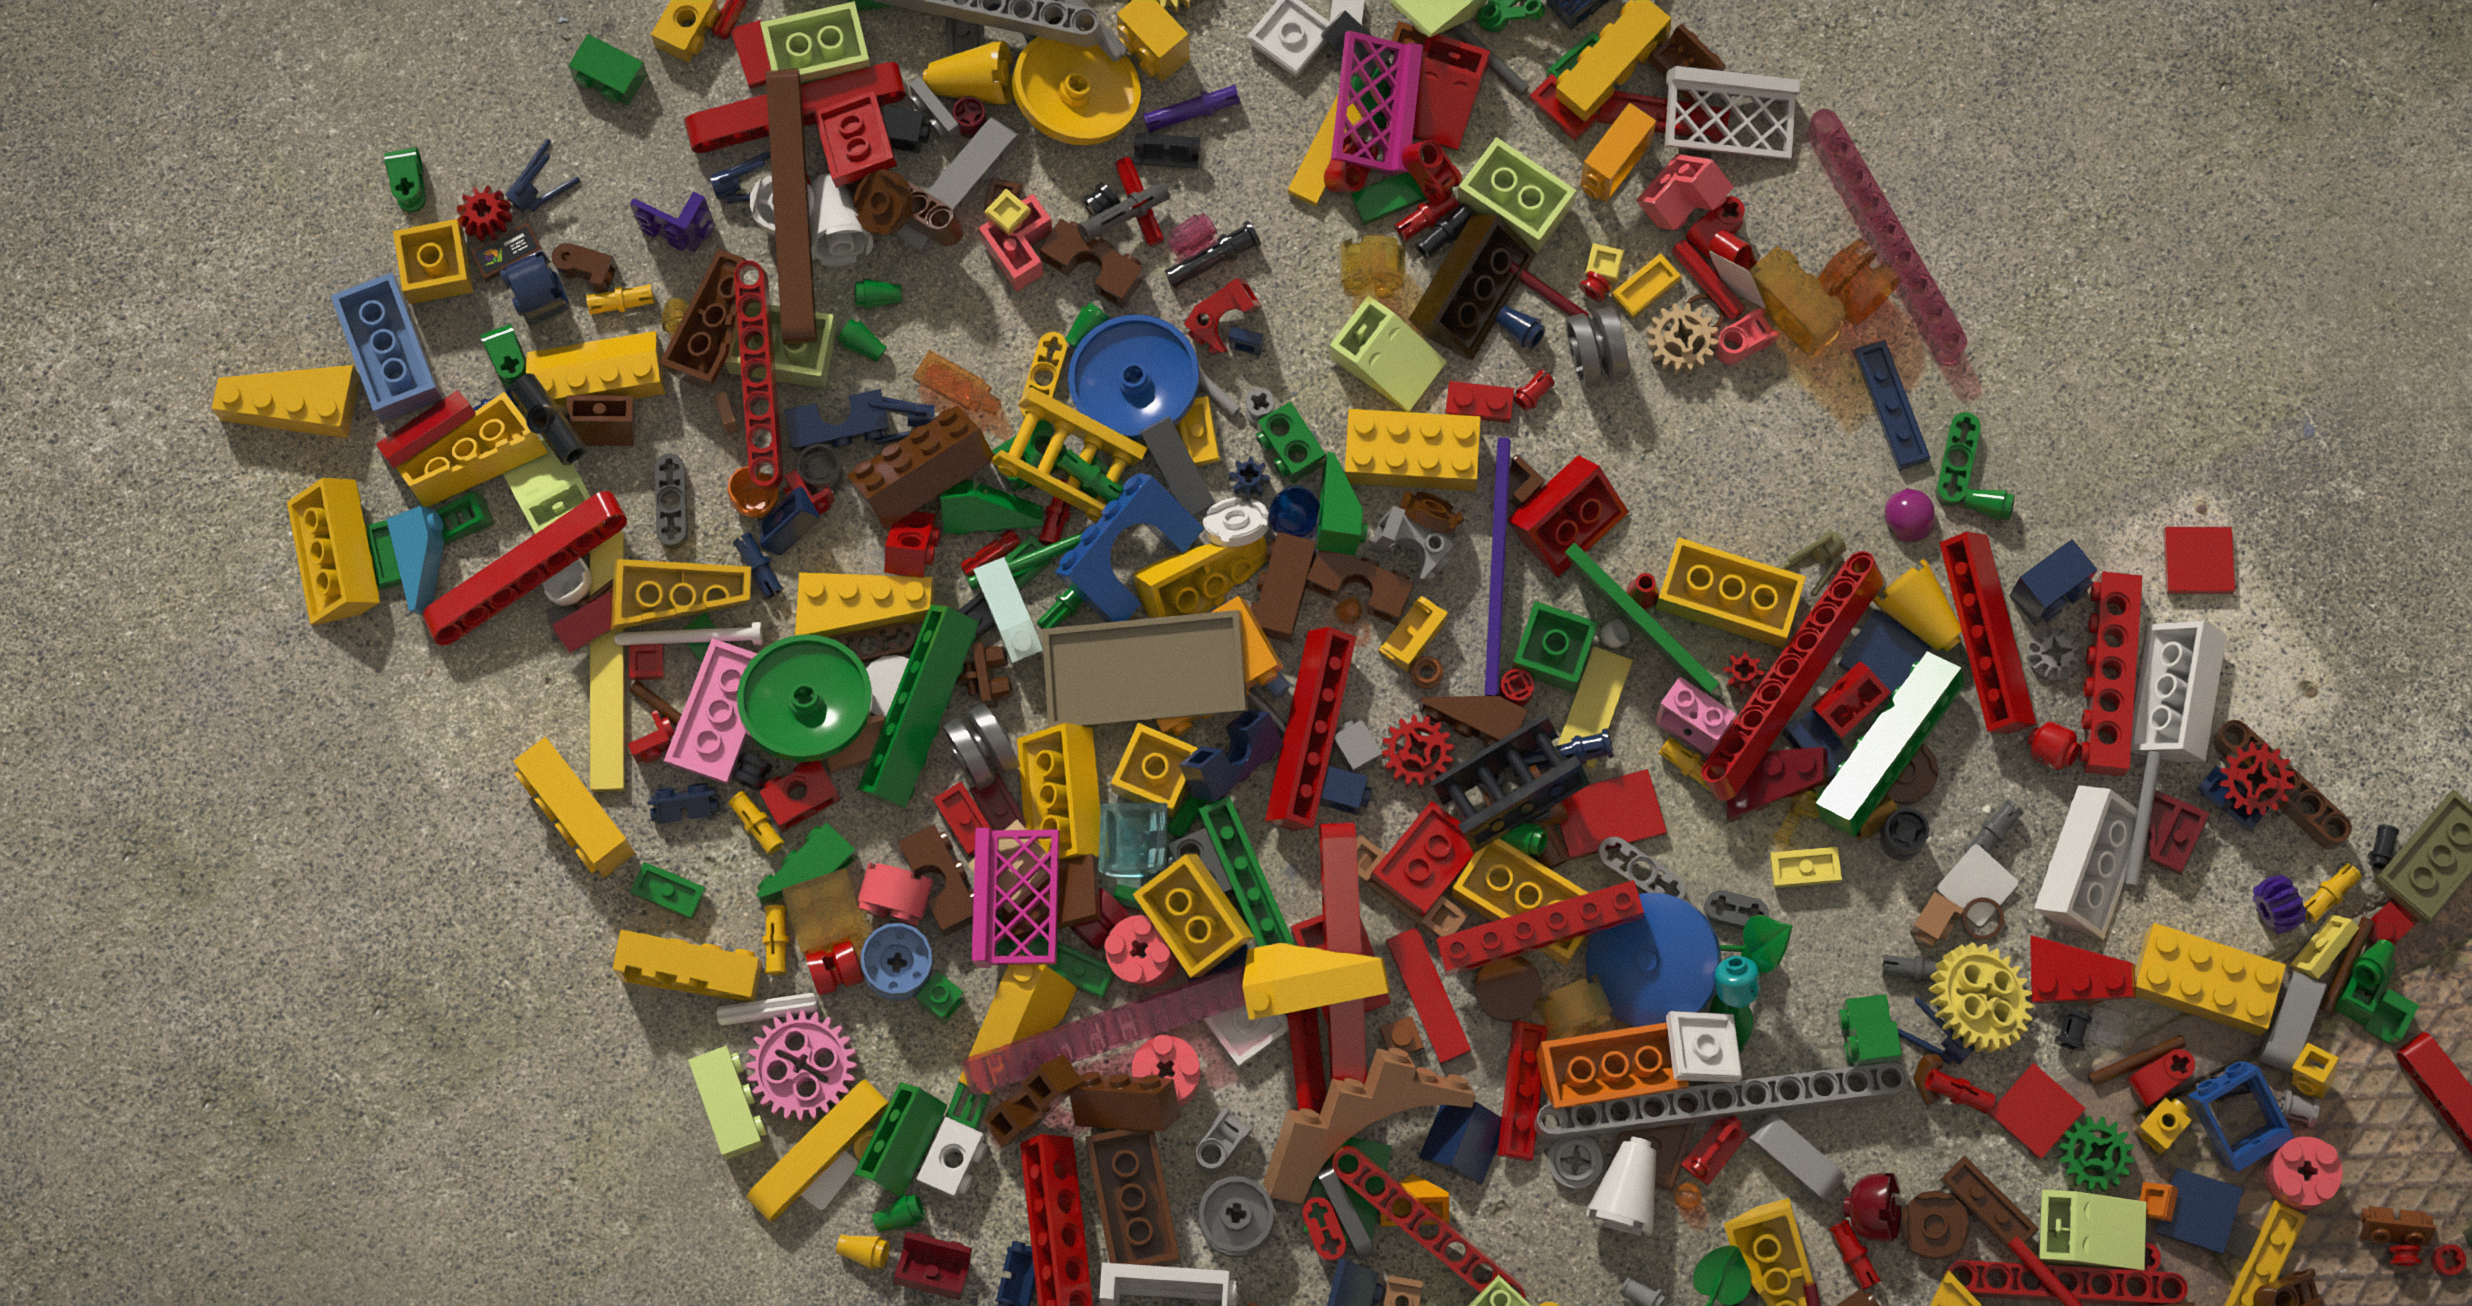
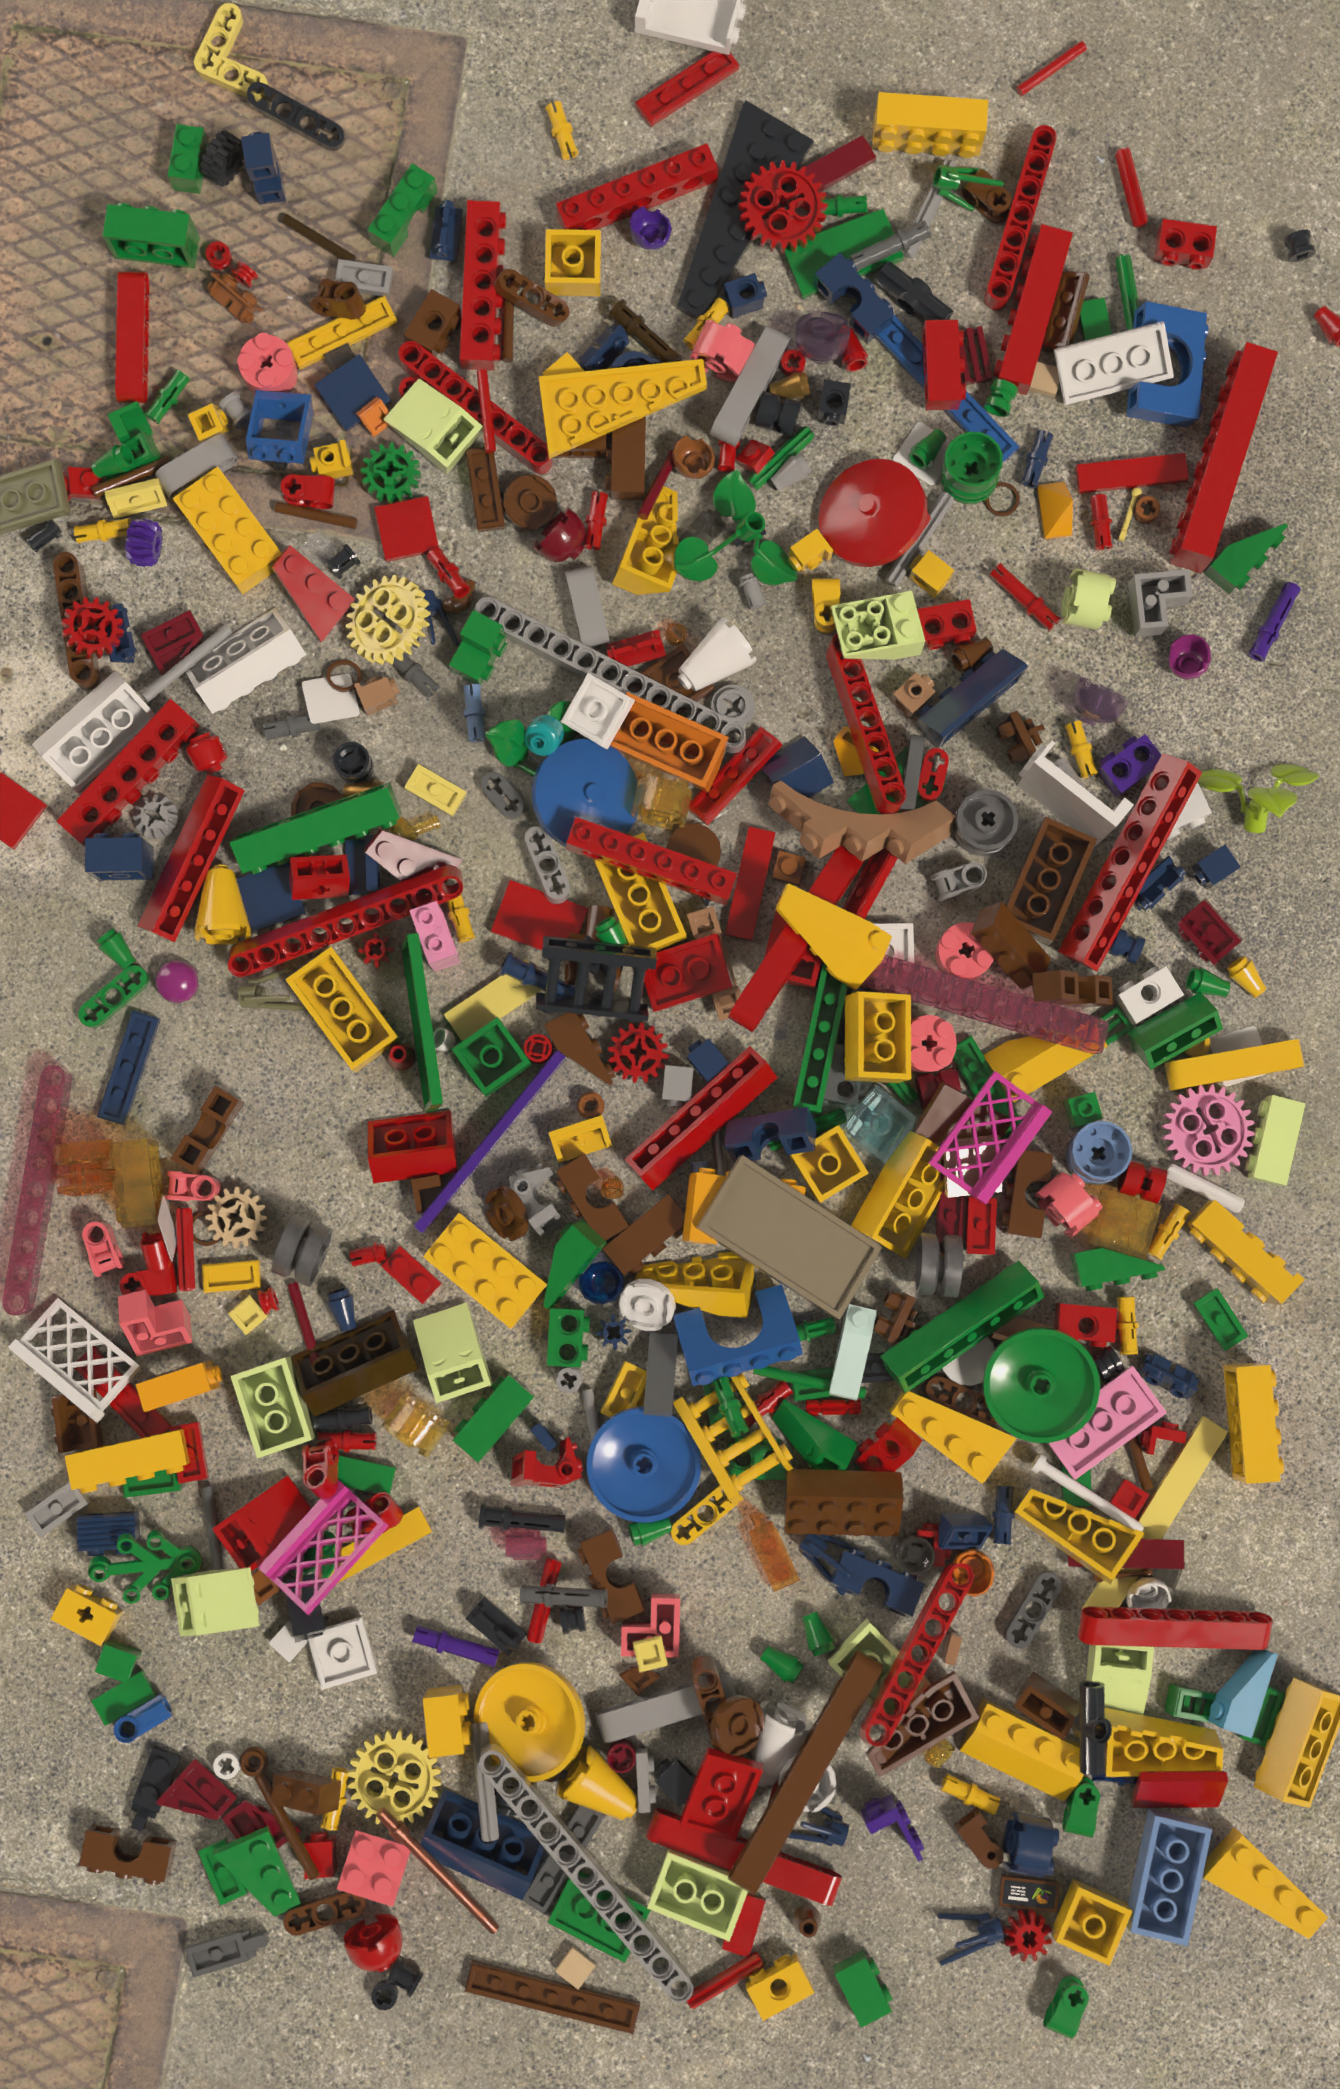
camera: 150 degrees left, 10 degrees up
(698, 91) = (806, 1914): none -> reddish brown cone
(1010, 1193) = (1127, 946): none -> dark blue wheel
(1307, 326) = (492, 1416): none -> green brick
(1769, 395) = (201, 1143): none -> reddish brown arch
(1780, 223) = (102, 1250): none -> coral piece
(1826, 971) = (474, 713): none -> medium blue pin
(2379, 1074) = (167, 396): none -> green pin

